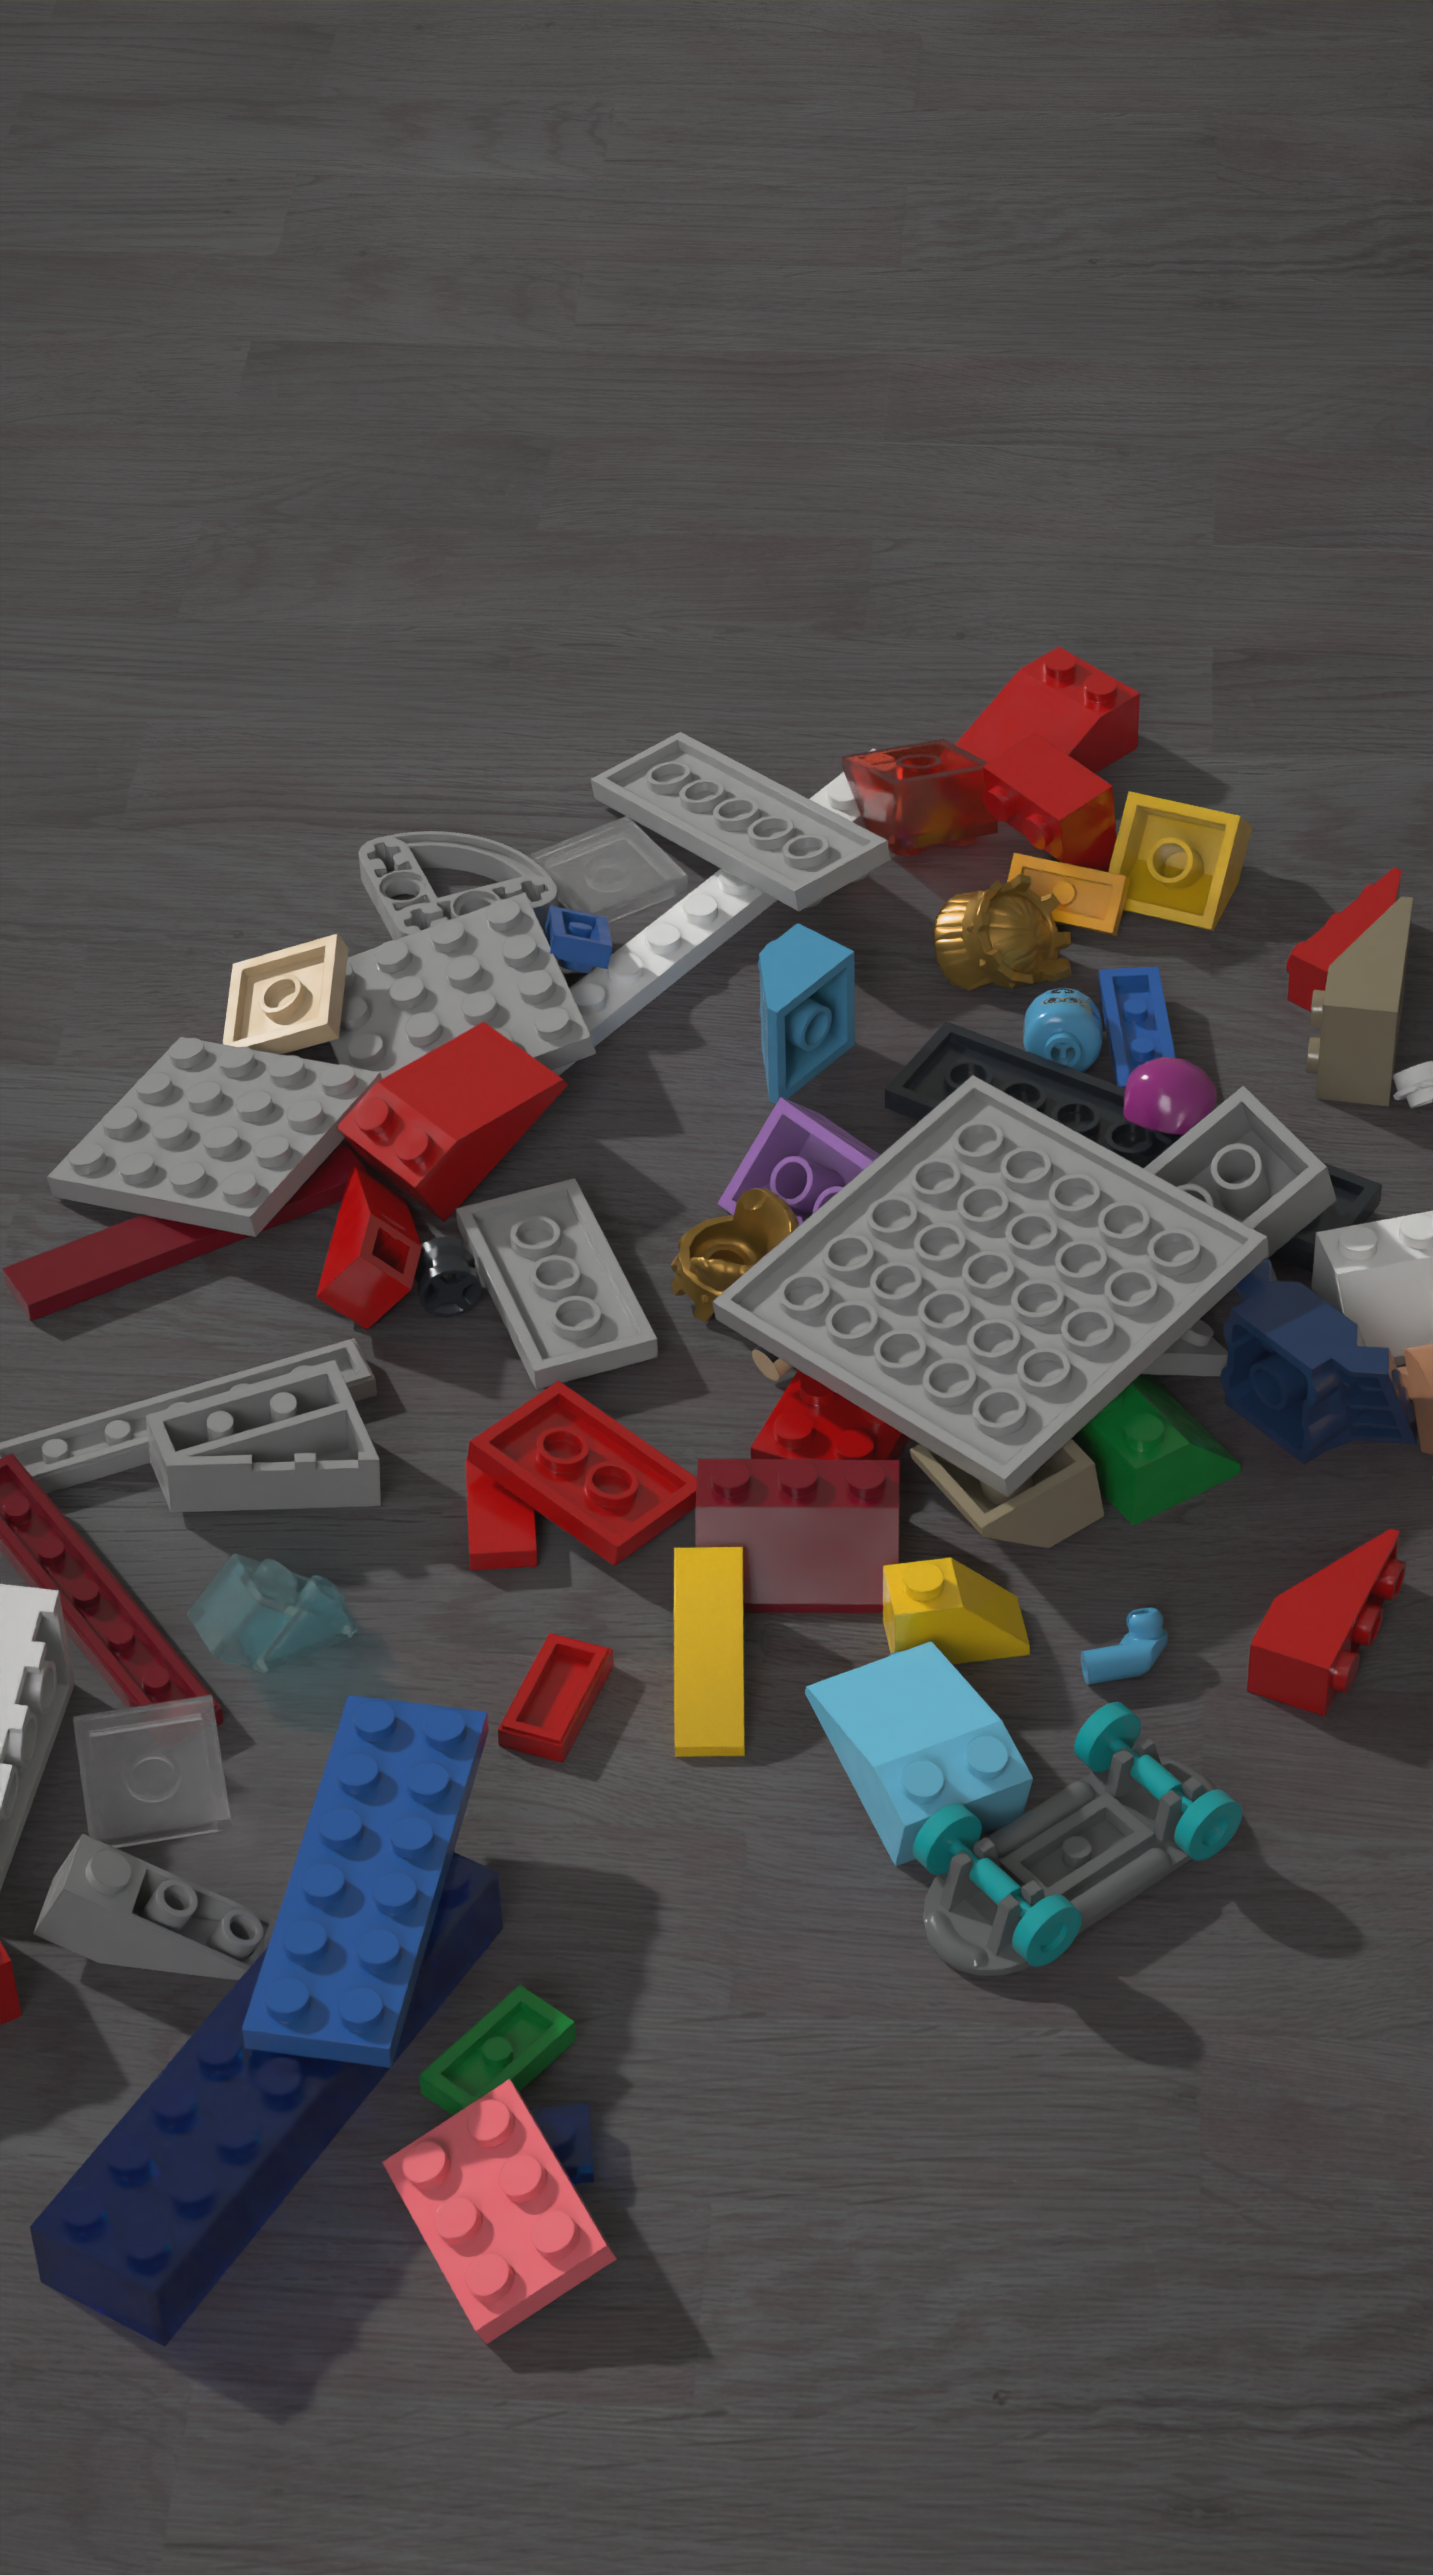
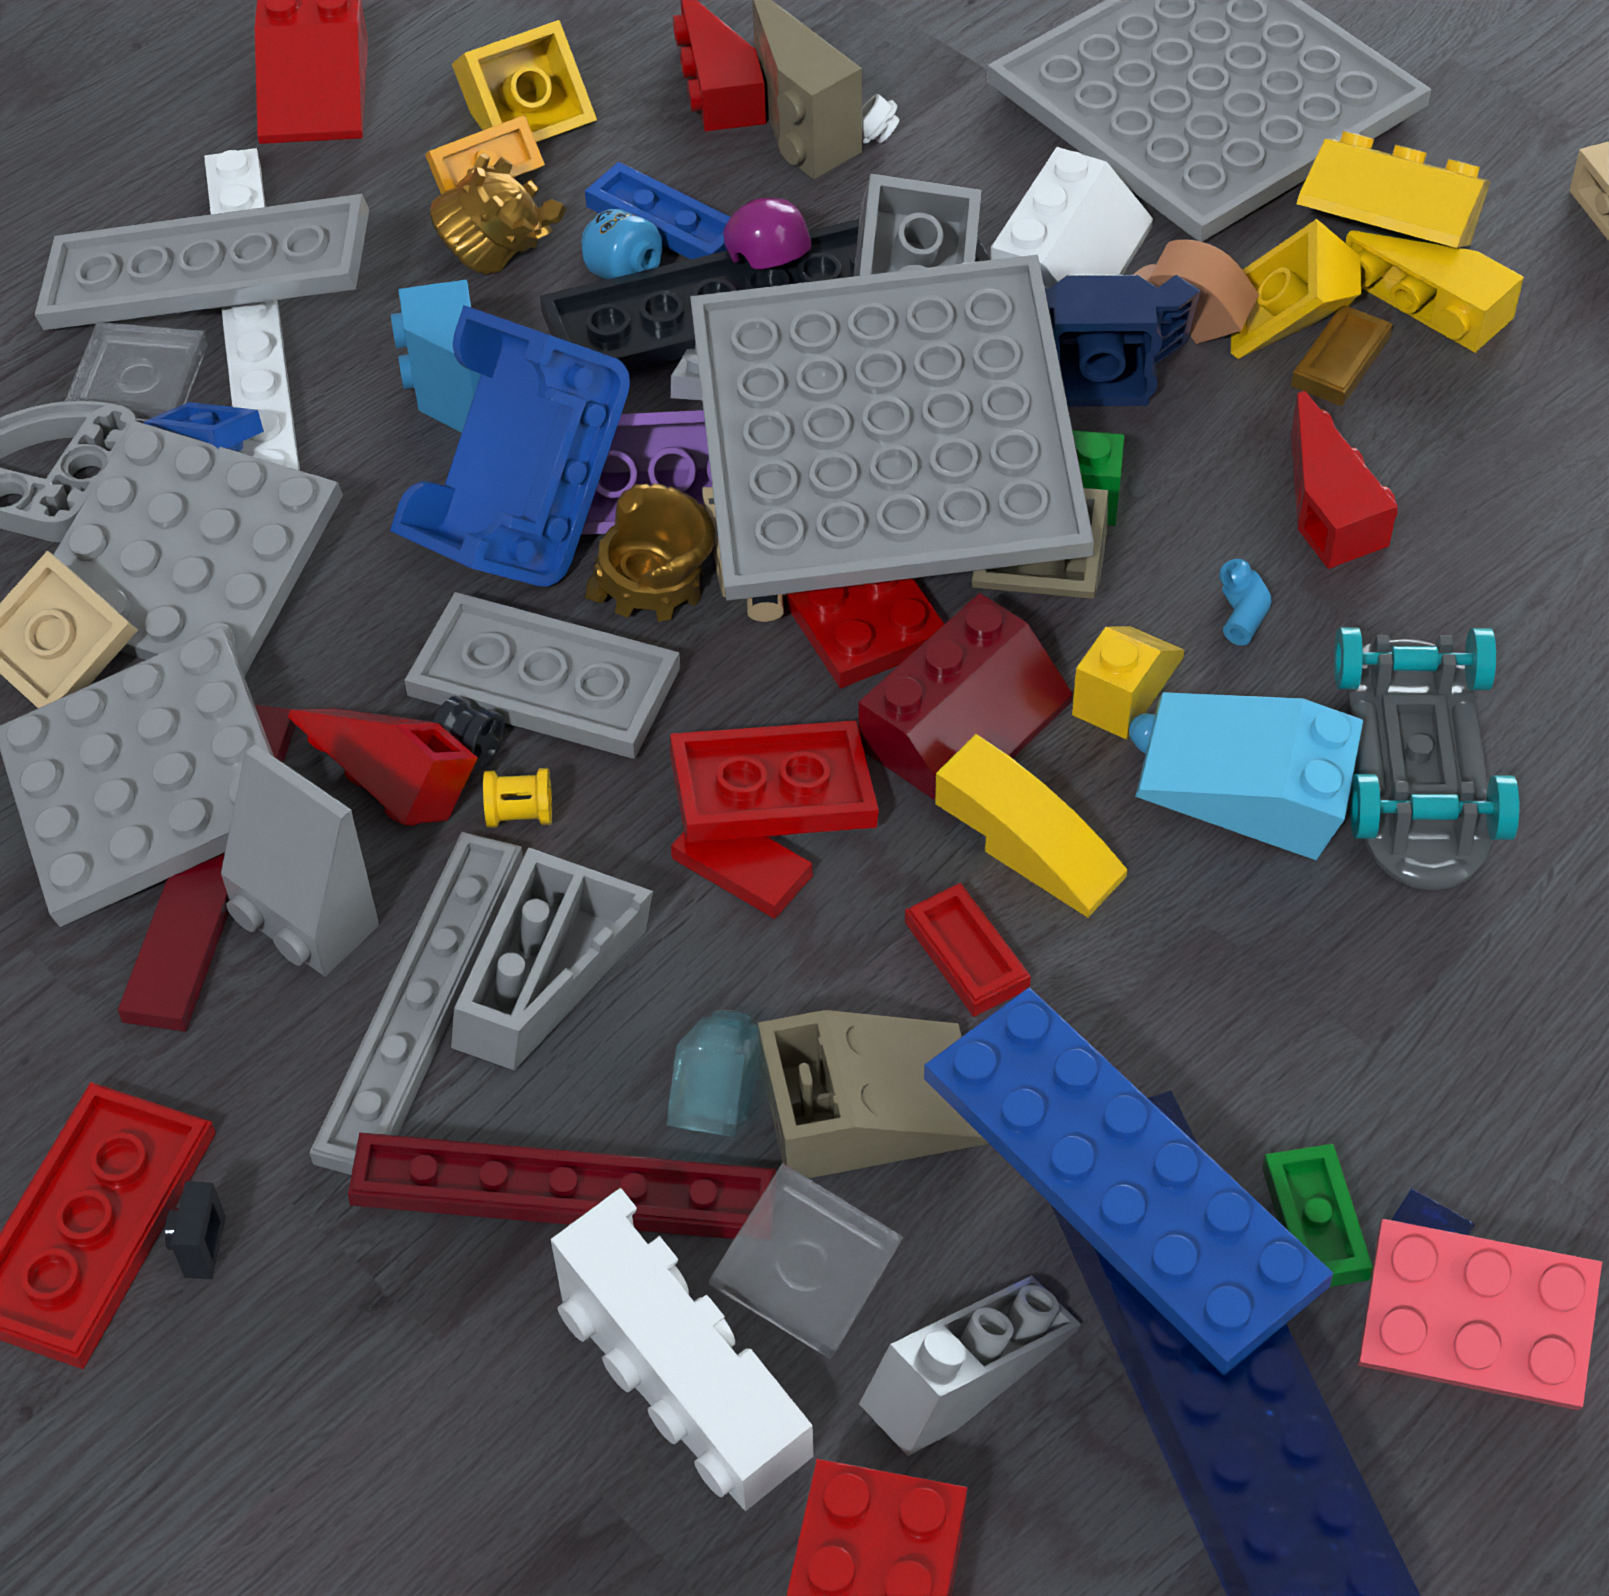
camera: 50 degrees left, 10 degrees up
(193, 1265) = (296, 866): none -> light grey slope
(294, 1678) = (855, 1092): none -> dark tan slope
(416, 1345) = (537, 807): none -> yellow bush
(450, 1116) = (317, 616): red slope -> none
(689, 1155) = (523, 454): none -> blue windscreen
(920, 795) = (298, 153): clear red slope -> none
(1053, 802) = (415, 94): red slope -> none

